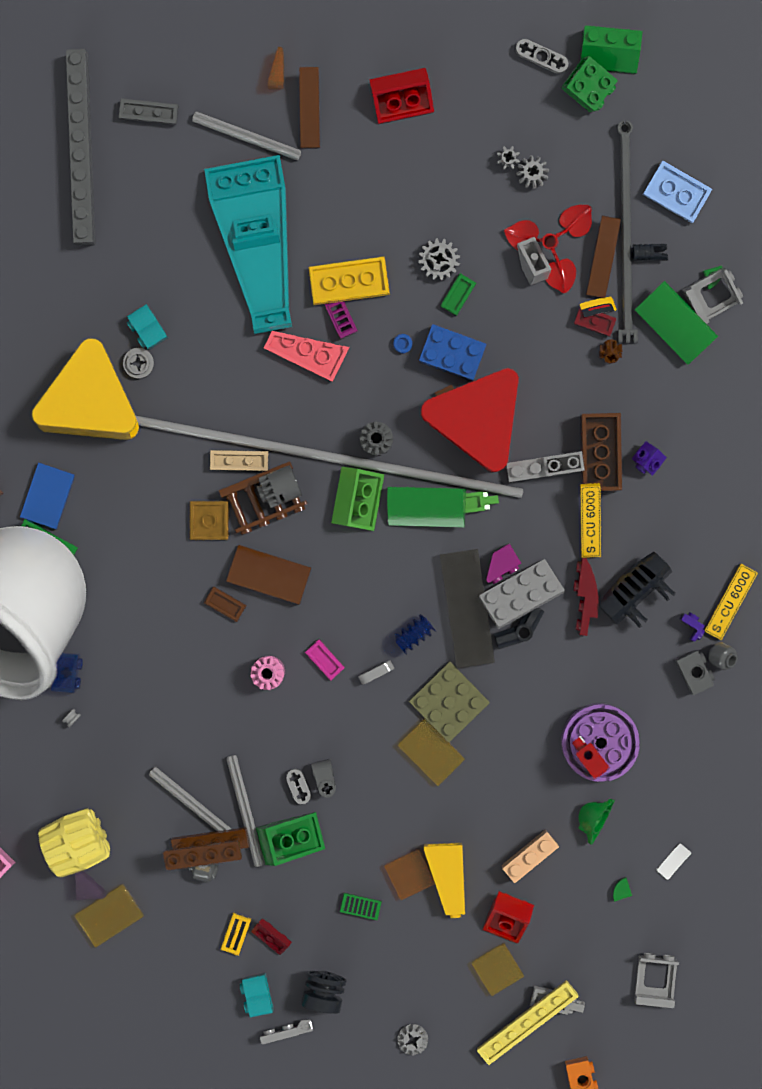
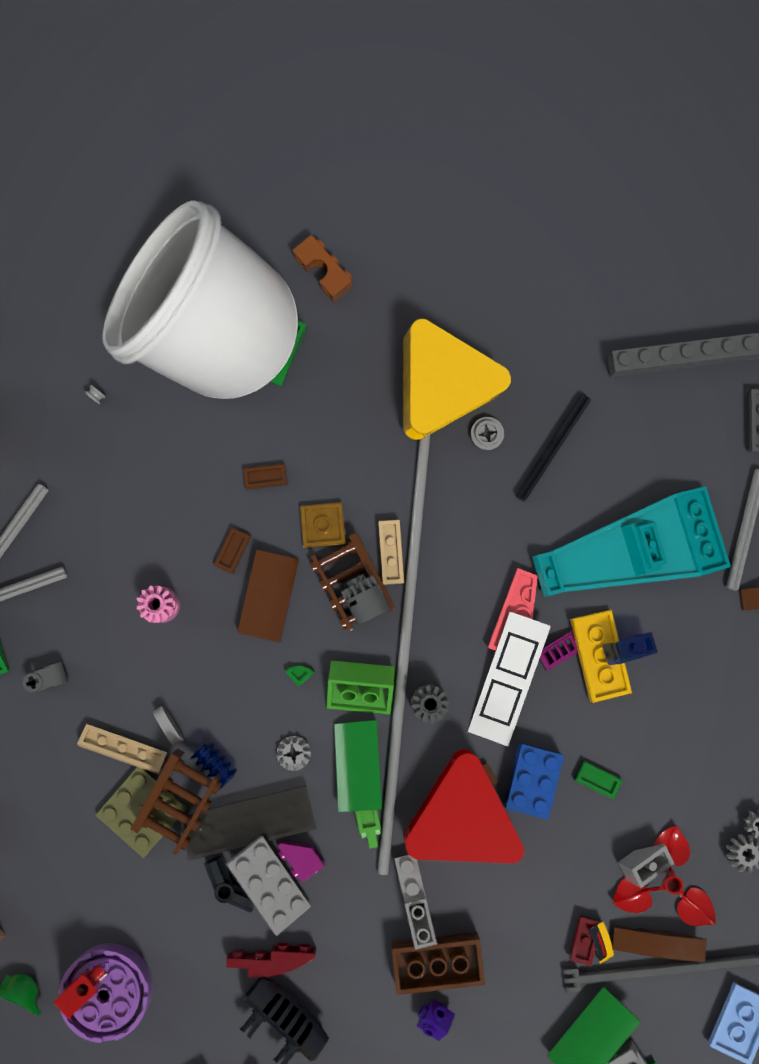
camera: 80 degrees right, 5 degrees down
(47, 495) = (334, 349): blue tile -> none
(73, 682) = (134, 378): clear blue brick -> none
(147, 327) = (527, 439): teal brick -> none
(158, 305) = (553, 447): none -> black axle
(160, 569) = (265, 476): none -> reddish brown tile
(294, 788) = (33, 645): light grey beam -> none
(324, 659) = (179, 666): dark pink tile -> none
(341, 552) = (299, 674): none -> green tile
(344, 255) = (630, 649): none -> clear blue panel
(361, 365) = (509, 678): none -> white sticker
(393, 714) = (122, 749): none -> tan plate
(402, 343) = (537, 722): blue tile -> none
(404, 570) = (299, 745): none -> light grey gear
(424, 674) = (166, 783): none -> reddish brown fence
(431, 752) = (83, 795): clear yellow tile -> none
(441, 251) = (635, 763): light grey gear -> none
(590, 520) = (359, 959): yellow tile -> none
(610, 351) = (553, 963): reddish brown gear -> none
(646, 252) = (669, 996): black hinge -> none

